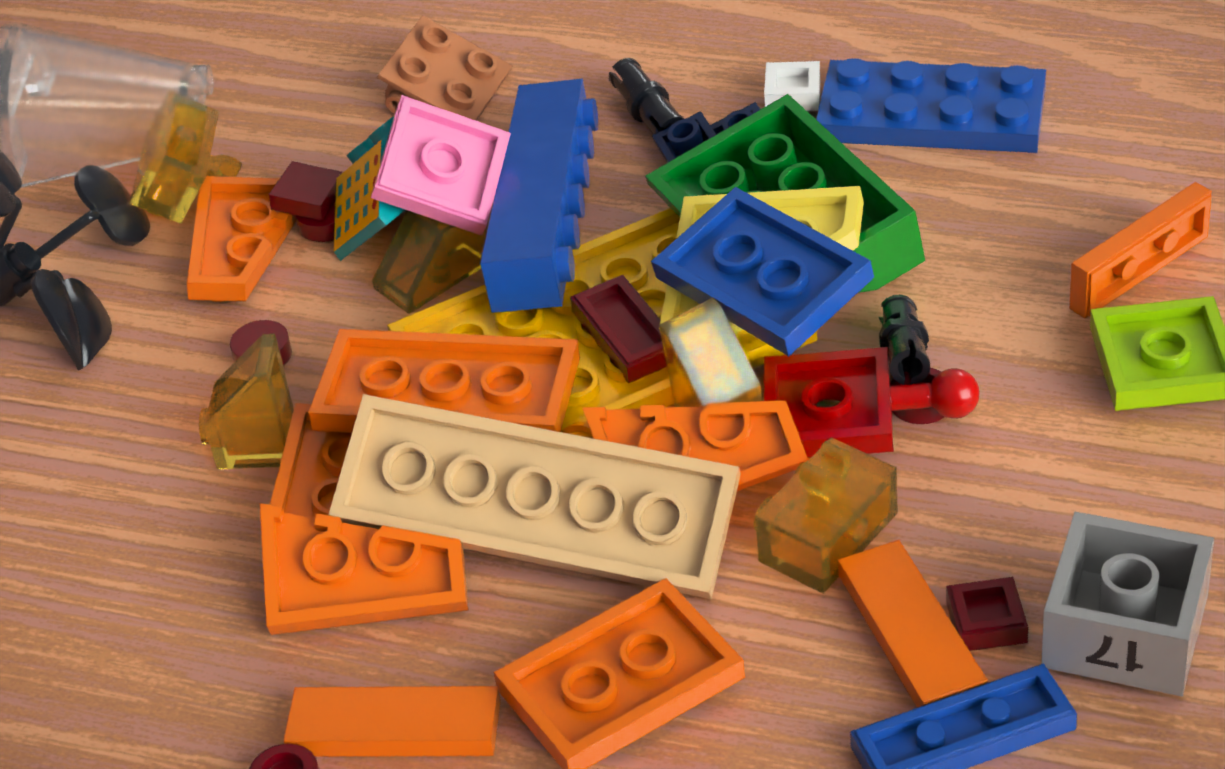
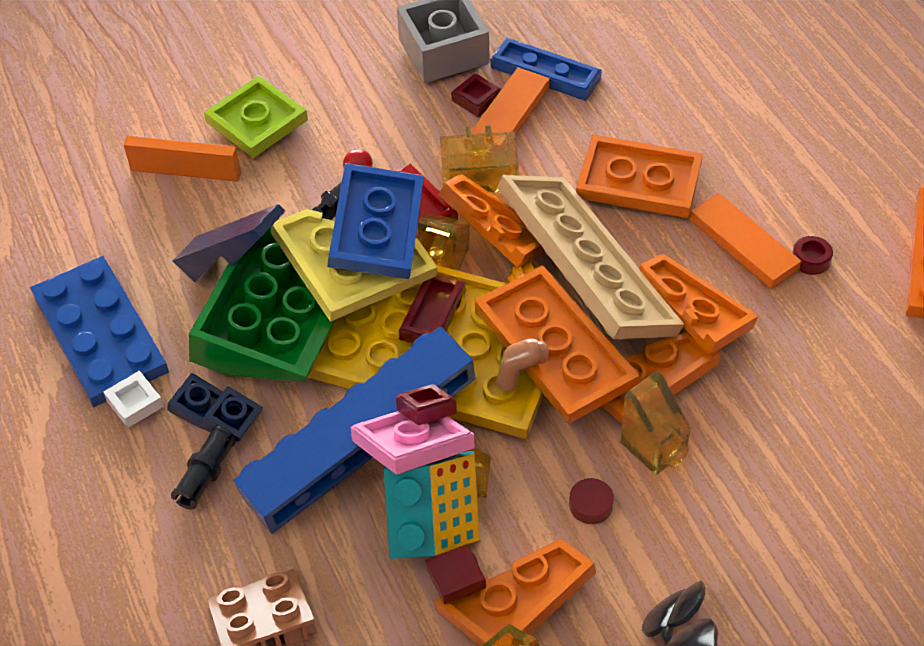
camera: 135 degrees left, 10 degrees up
(442, 319) = (518, 357): none -> nougat arm
(466, 193) = (426, 404): none -> dark red tile
(878, 160) = (228, 241): none -> dark blue slope

